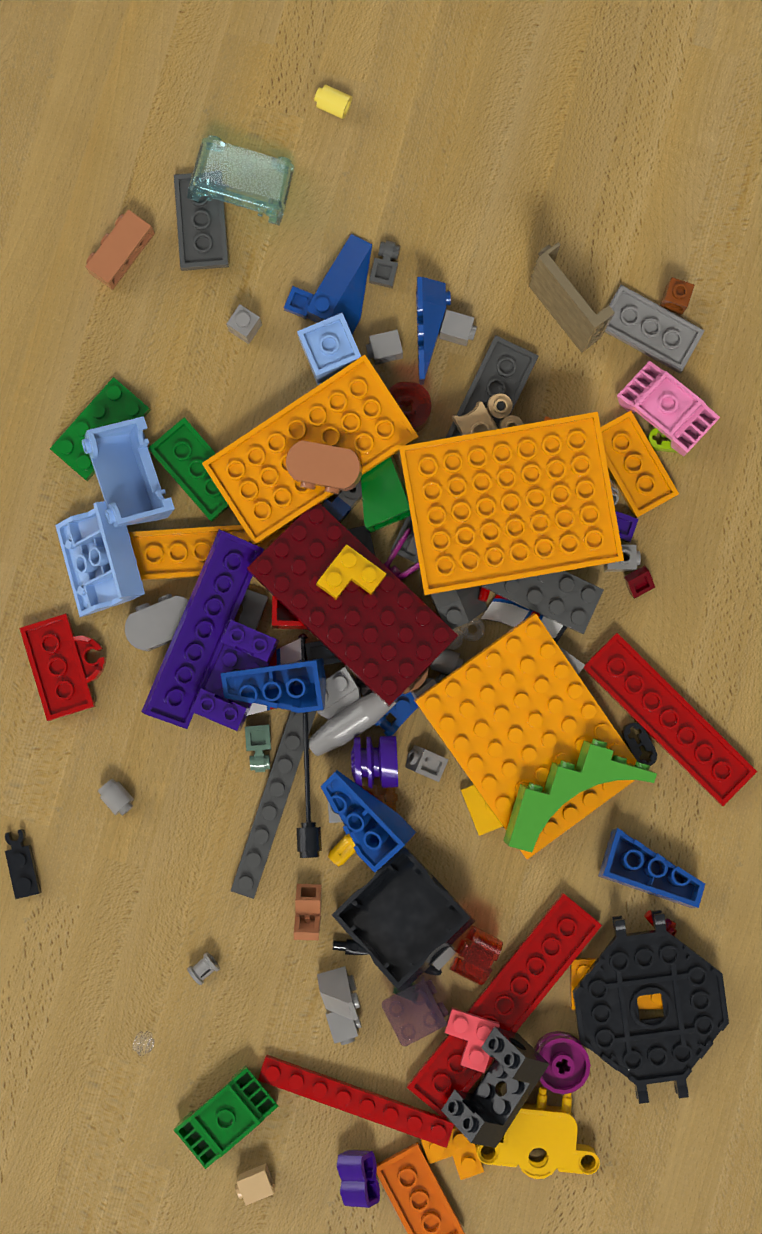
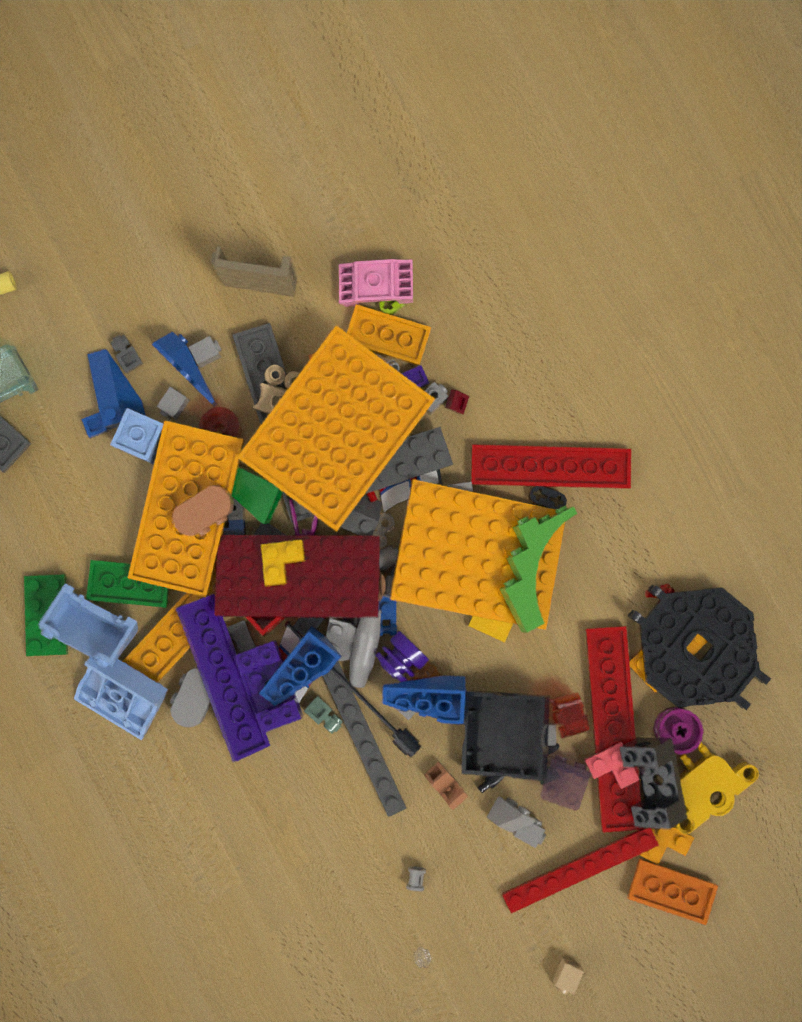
camera: 45 degrees left, 0 degrees up
(22, 867) = (249, 923): black plate -> none
(61, 666) = (158, 780): red plate -> none
(116, 797) = (266, 827): light grey brick -> none
(226, 1117) = (513, 954): green plate -> none
(244, 324) = (73, 469): light grey brick -> none
(342, 851) = (432, 729): yellow piece -> none
(358, 1177) = (625, 913): dark purple brick -> none
(426, 763) = (432, 629): light grey bracket -> none
(640, 868) = (621, 569): blue wedge -> none
(652, 329) = (322, 243): light grey tile -> none
(677, 296) = (318, 210): dark orange brick -> none

